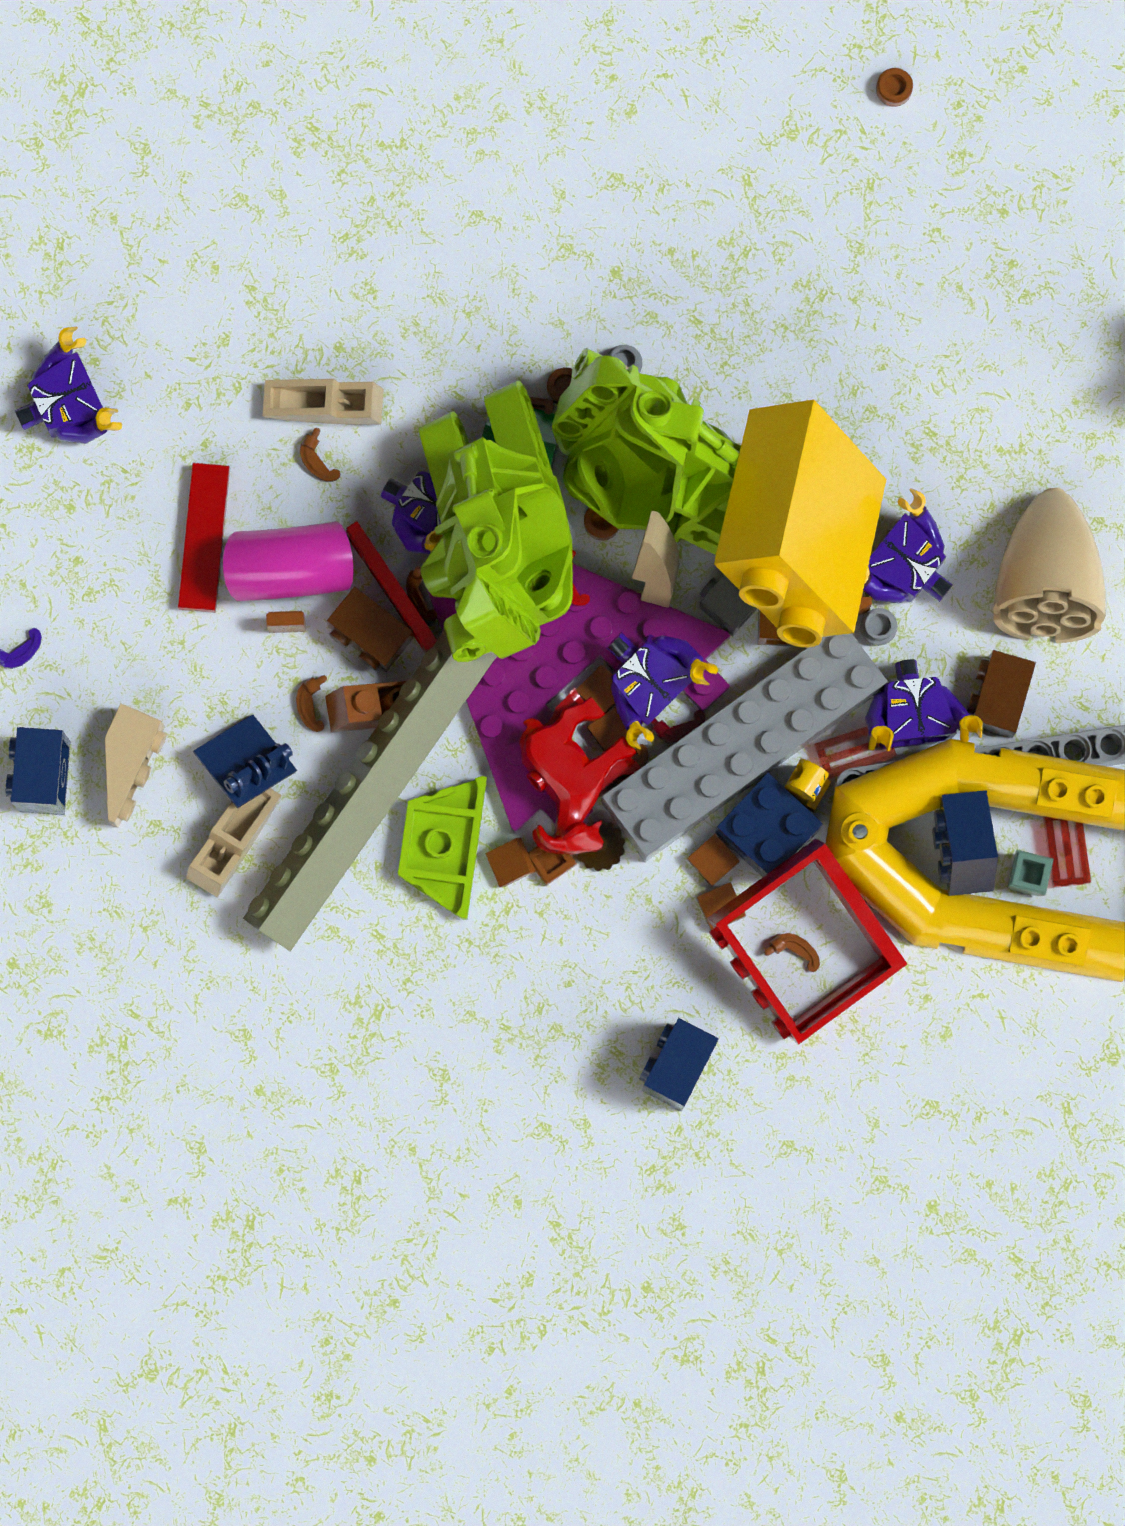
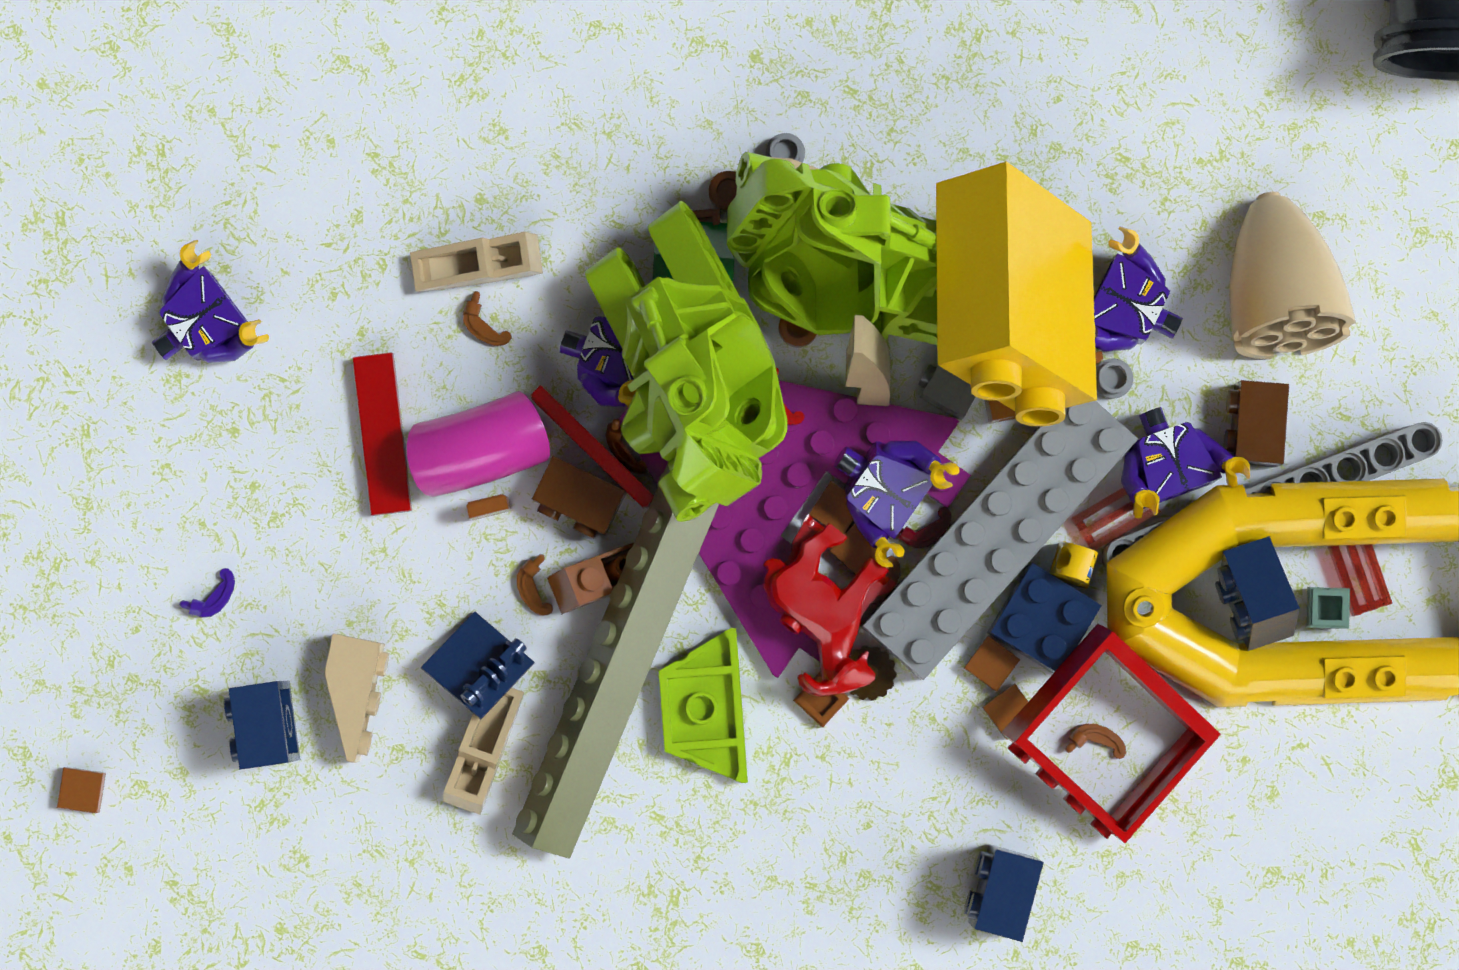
camera: 10 degrees left, 5 degrees up
(510, 862) = (780, 712): dark orange tile -> none

